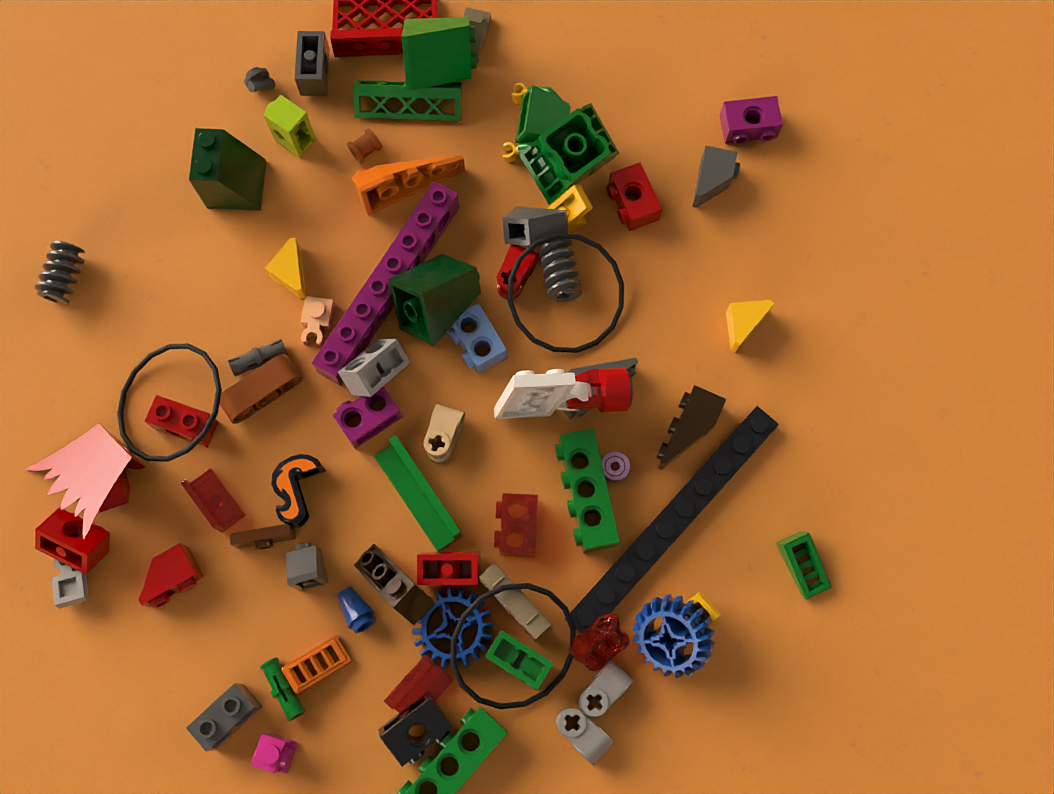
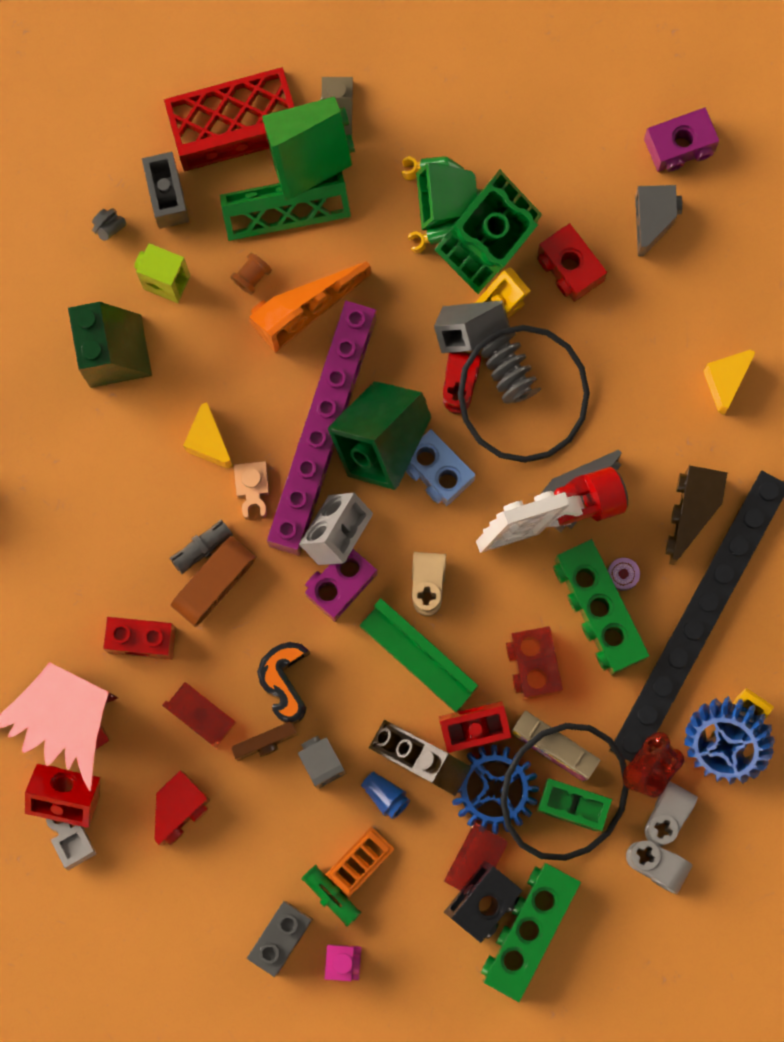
camera: 10 degrees left, 5 degrees up
(209, 423) = (173, 648): black piece -> none

